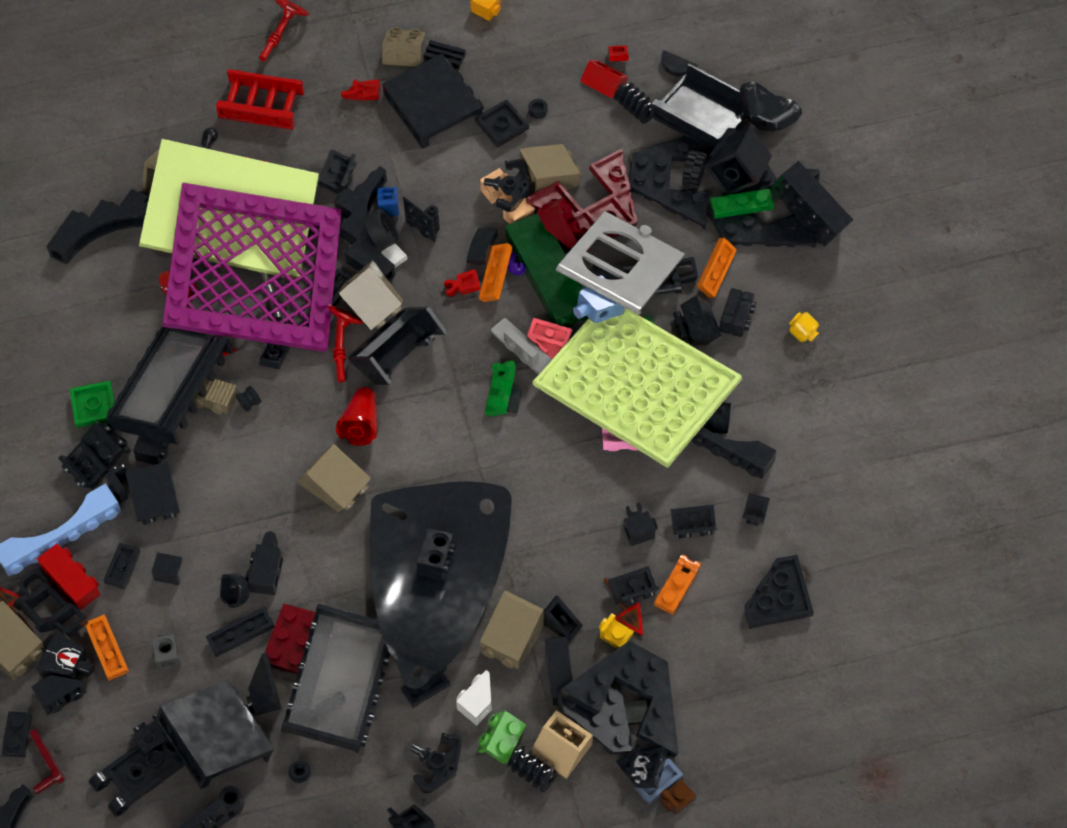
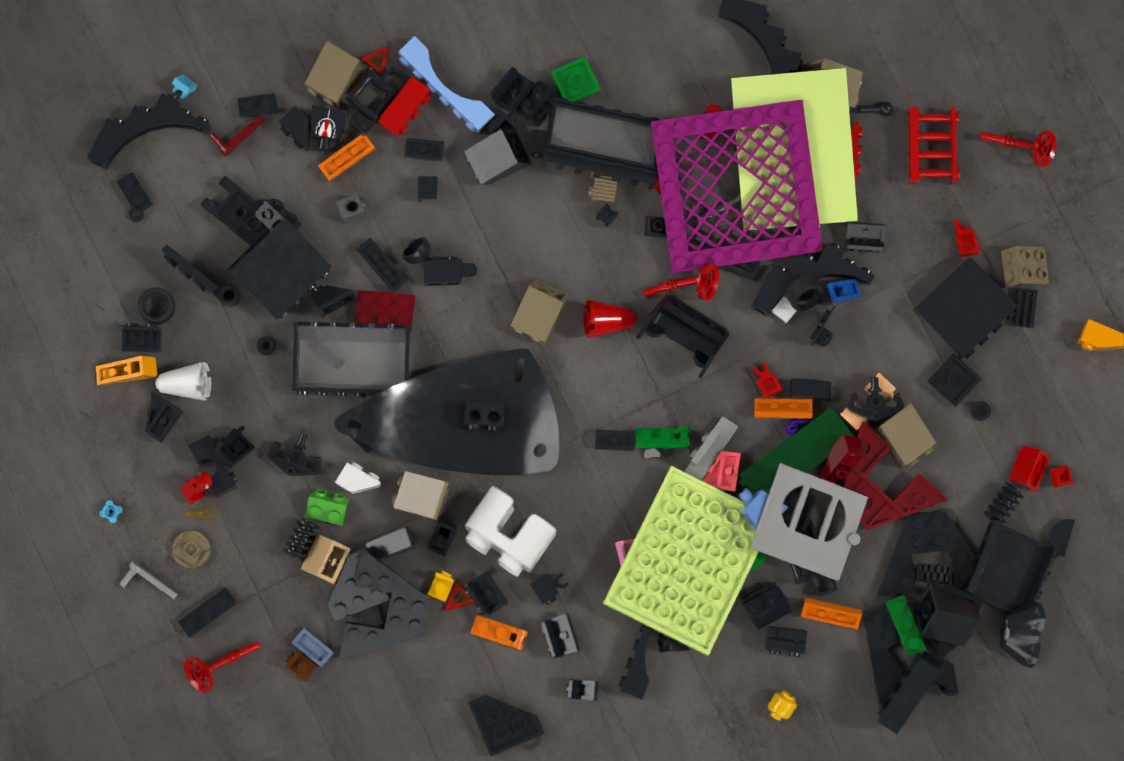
camera: 75 degrees right, 20 degrees up
(371, 296) = (730, 299): slope -> none
(492, 434) = (614, 440): none -> black plate
(569, 552) = (518, 553): none -> white piece
(644, 766) = (321, 633): black slope -> none

